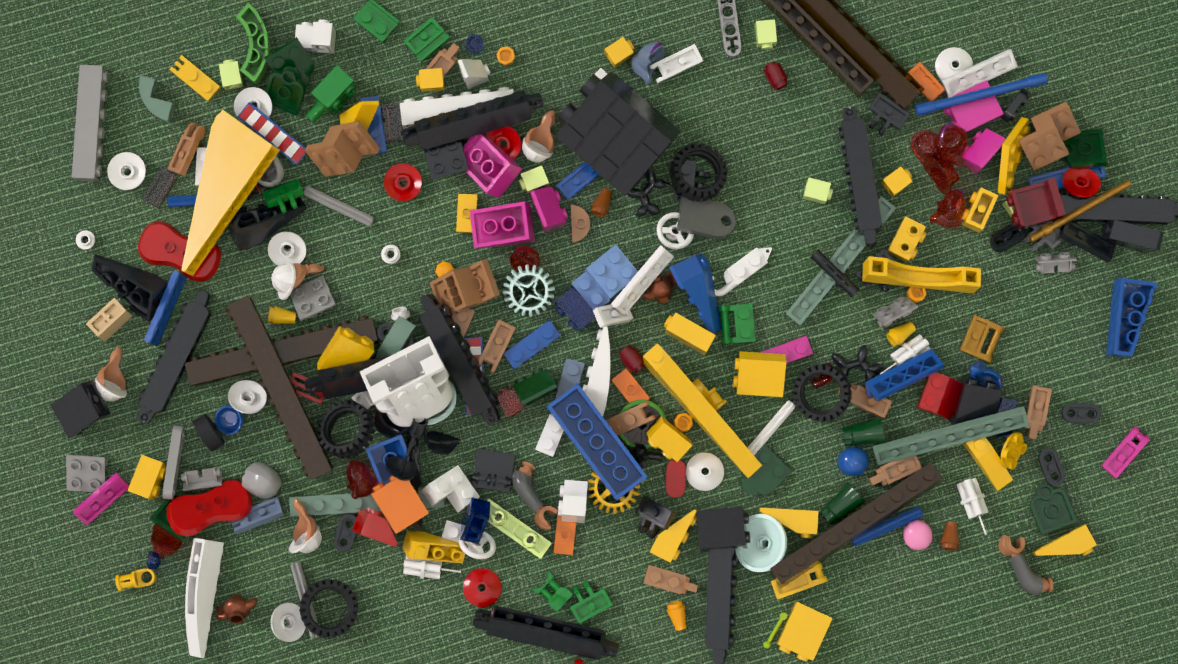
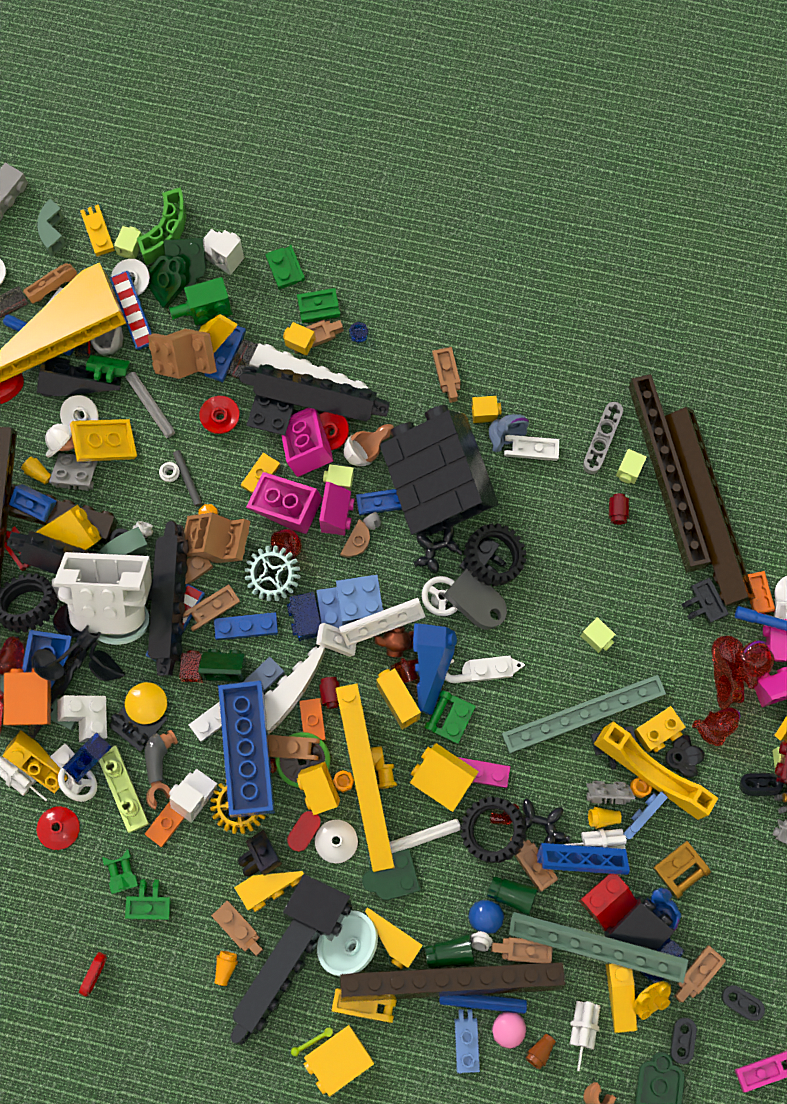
camera: 30 degrees right, 10 degrees down
(298, 345) = (32, 502): none -> blue slope
(322, 259) = (103, 440): none -> yellow plate
(409, 251) = (187, 478): none -> dark grey bar
(473, 72) = (340, 352): white slope -> none
(491, 452) = (146, 703): none -> yellow dish
(505, 56) = (380, 357): light orange tile -> none
(545, 632) = (87, 907): black hinge -> none
(569, 37) = (447, 372): none -> medium nougat hinge
(582, 200) = (372, 520): none -> light grey hinge
(602, 203) = (387, 535): dark orange cone -> none
(640, 454) = (284, 787): black piece -> none
(680, 306) = (406, 669): none -> clear red piece
(818, 257) = (578, 746): black pin -> none
(860, 482) = (481, 941): none -> white plate
(861, 176) = (648, 646): black hinge -> none
(891, 563) = (466, 1043): none -> medium blue hinge
(897, 181) = (681, 669): yellow brick -> none
(930, 315) = (642, 817): none -> medium blue hinge
(939, 247) = (687, 755): none -> black plate
(980, 209) = (747, 742): yellow brick -> none

